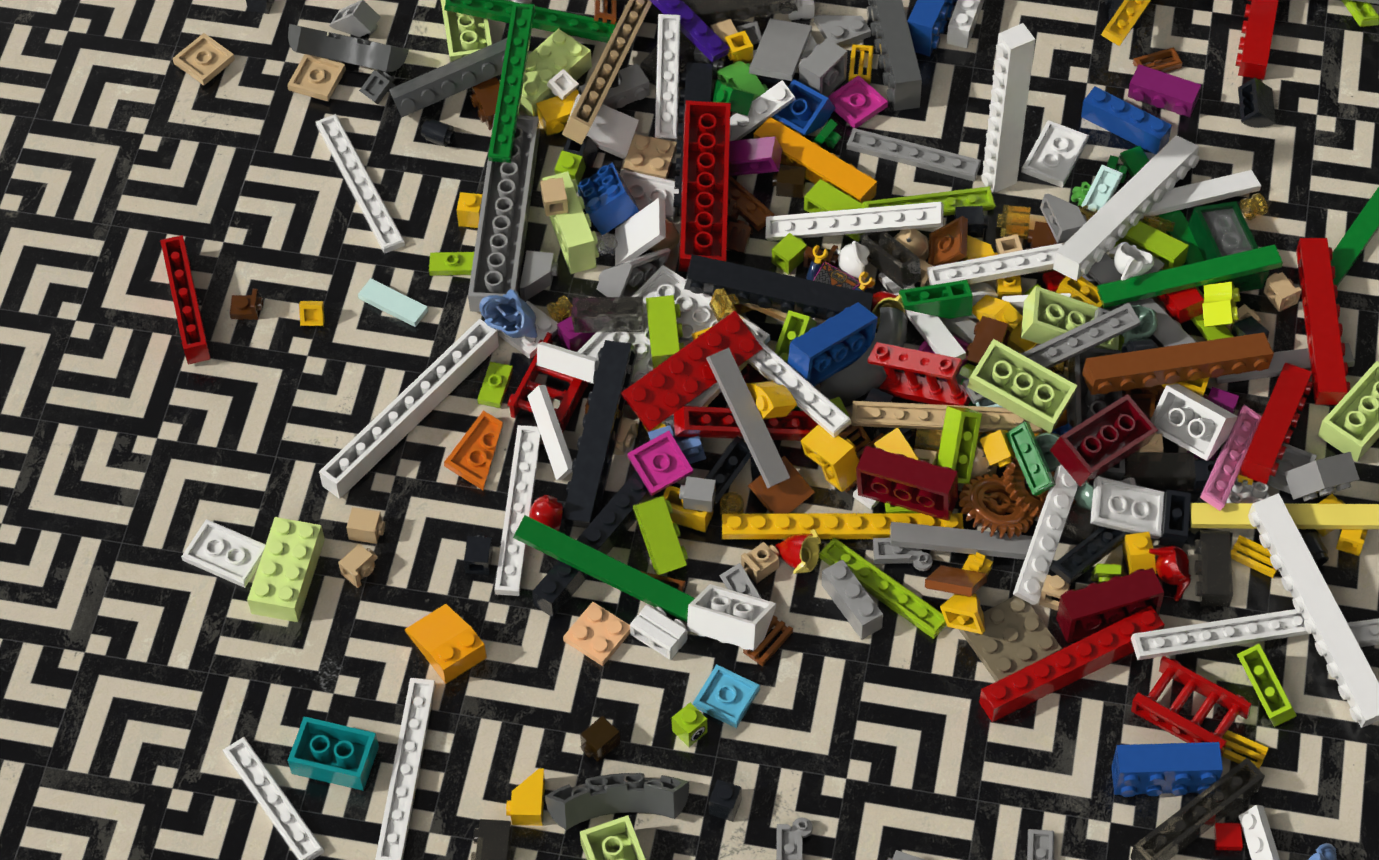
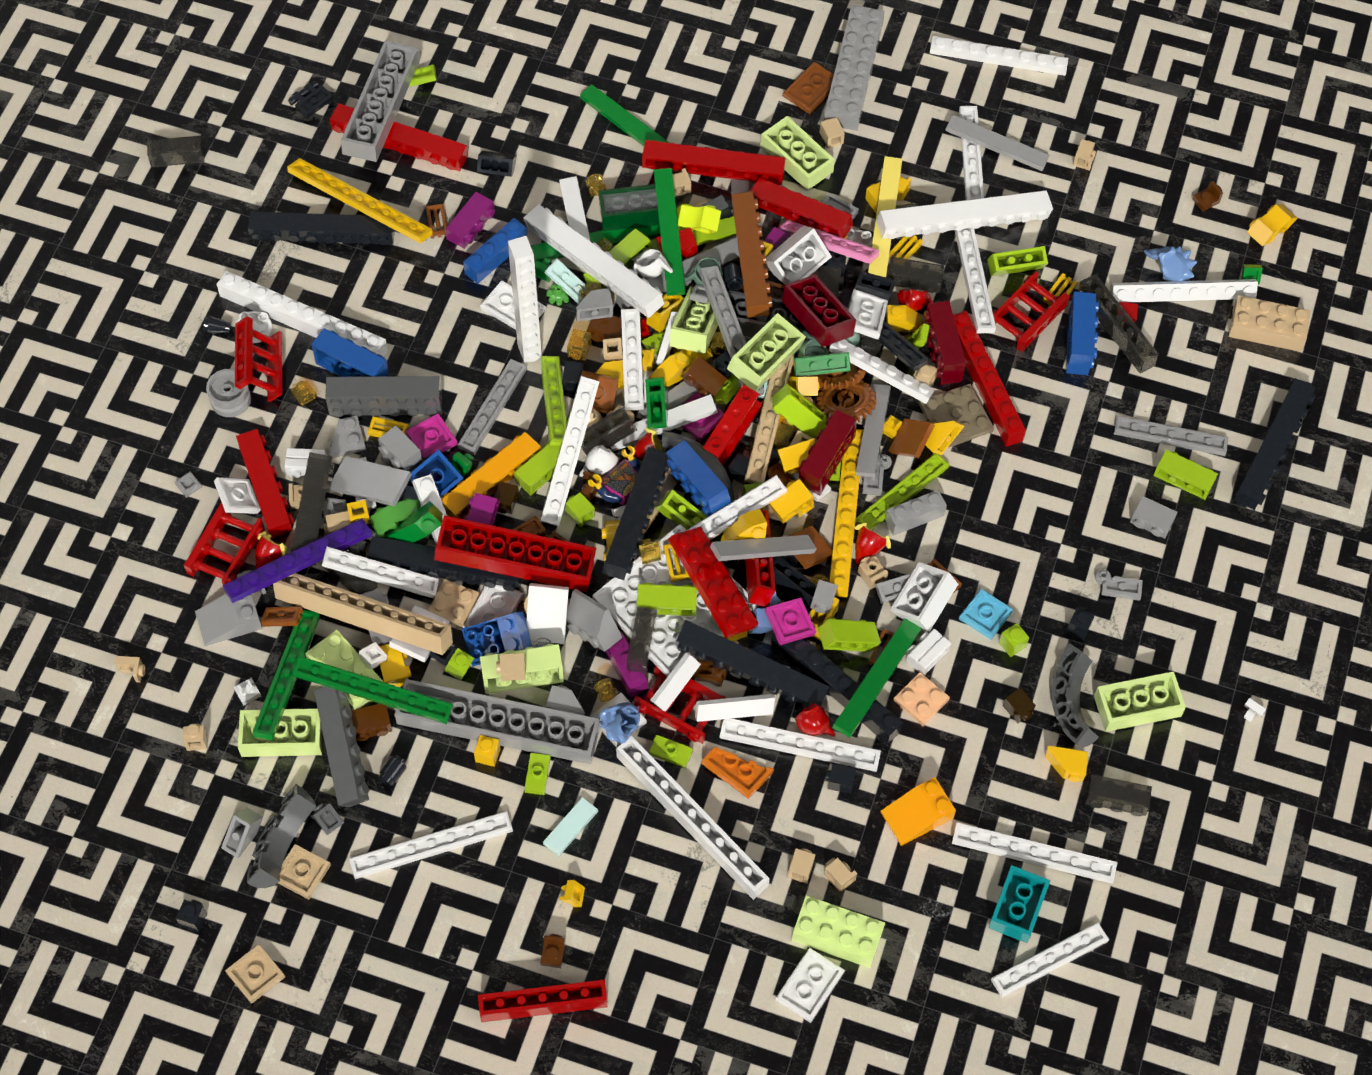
camera: 85 degrees left, 5 degrees up
(1322, 477) = (856, 188): light grey brick -> none

